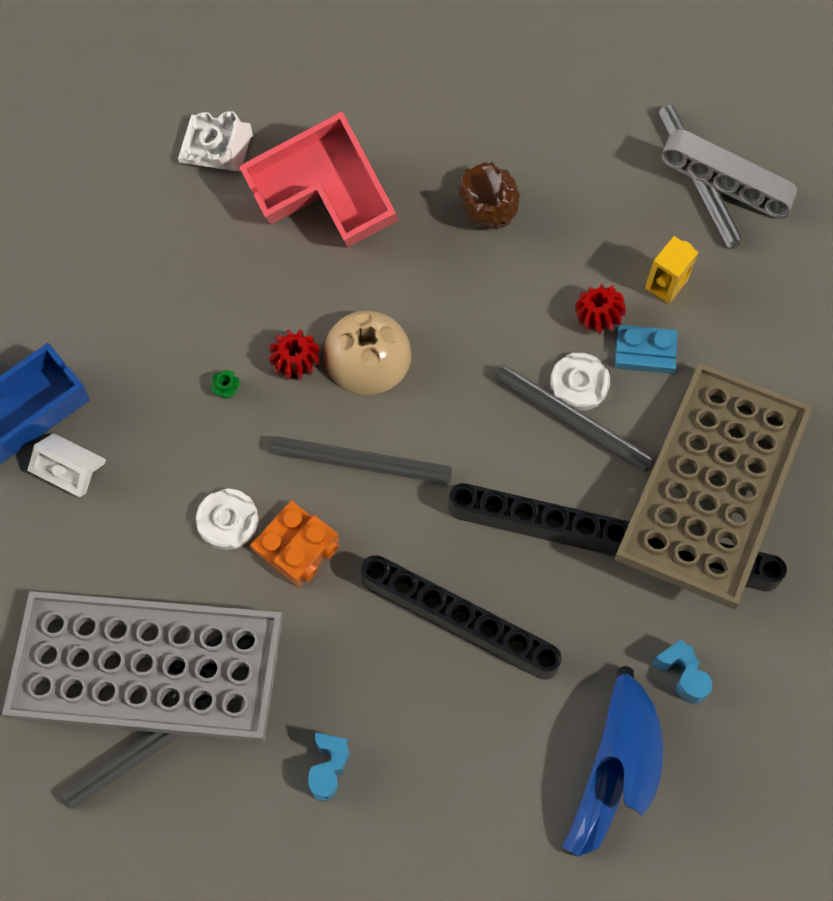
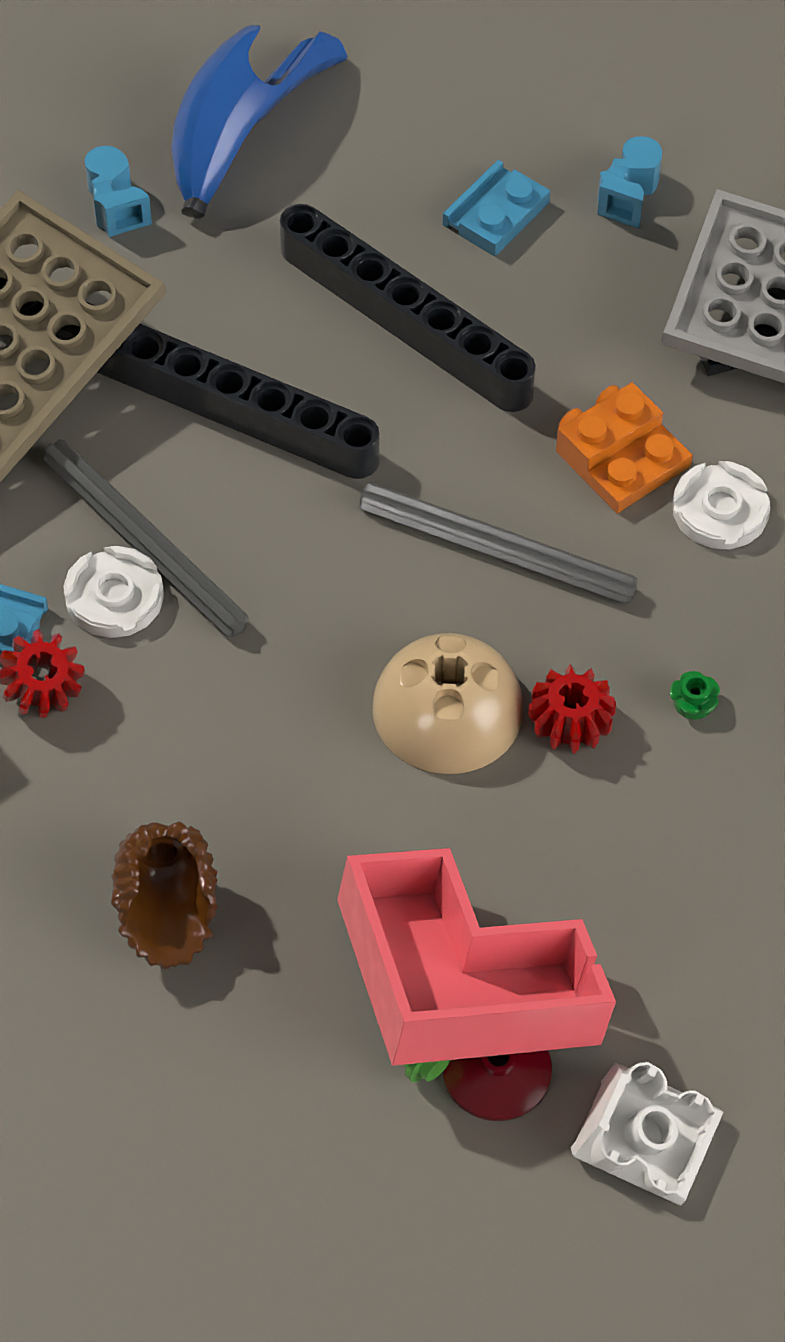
camera: 165 degrees left, 10 degrees down
(418, 727) = (496, 208): none -> dark azure plate

